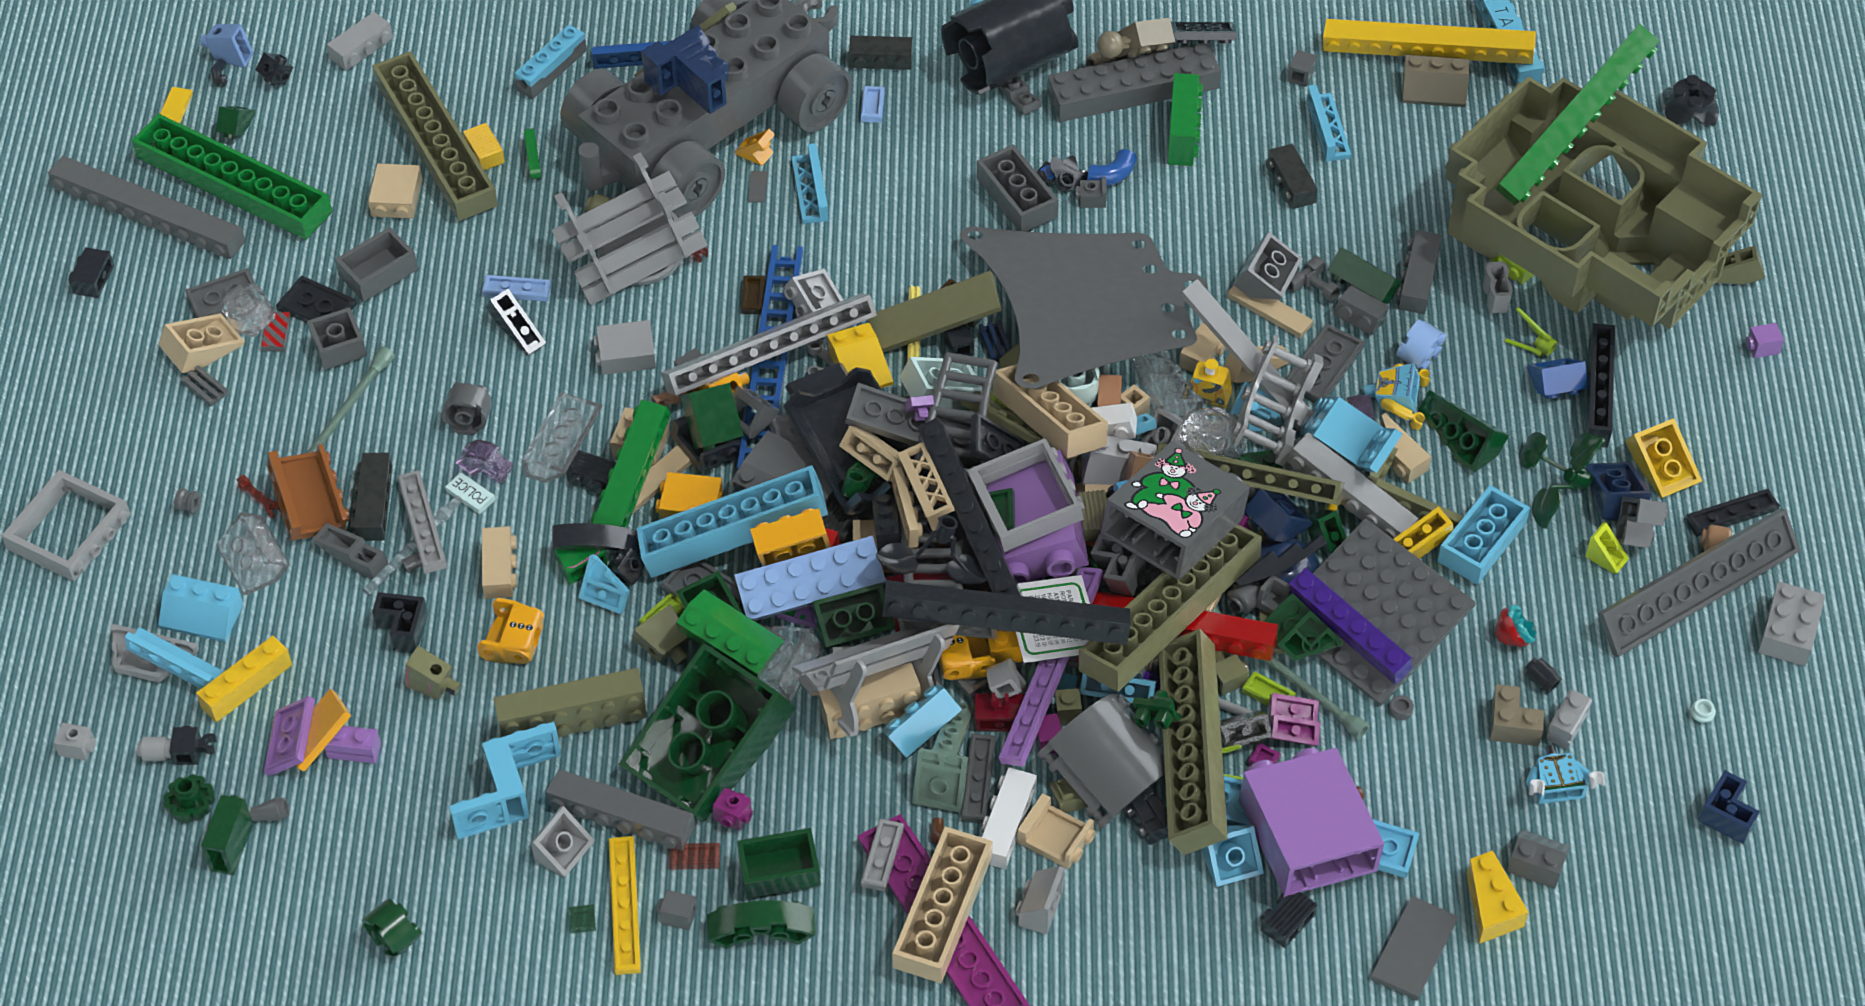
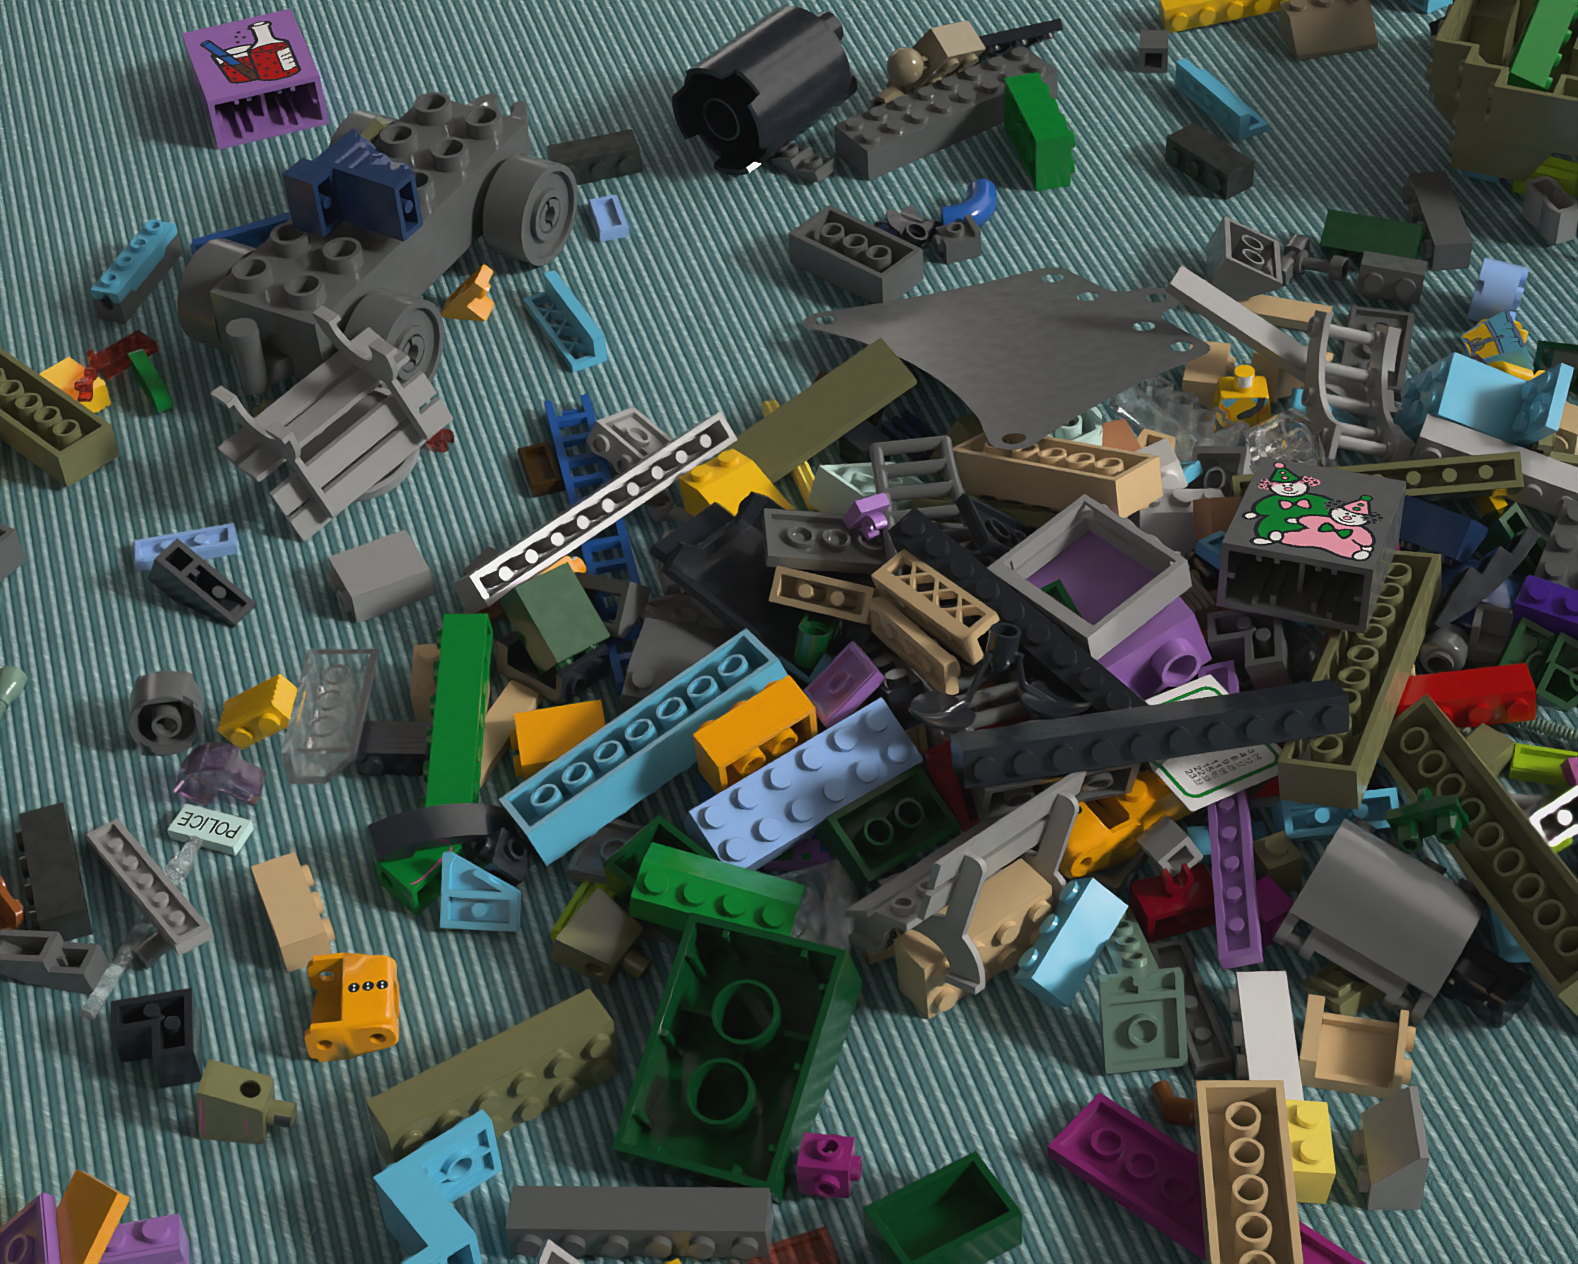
camera: 15 degrees left, 10 degrees down
(487, 152) = (85, 384): none -> clear red piece
(515, 127) = (118, 352): none -> clear red tile
(519, 425) = (258, 712): none -> yellow brick
(757, 186) = (490, 345): dark grey sticker -> none
(857, 518) = (843, 685): none -> medium lavender tile
(882, 855) = (1104, 1163): light grey tile -> none
(995, 883) = (1311, 1150): none -> light yellow brick

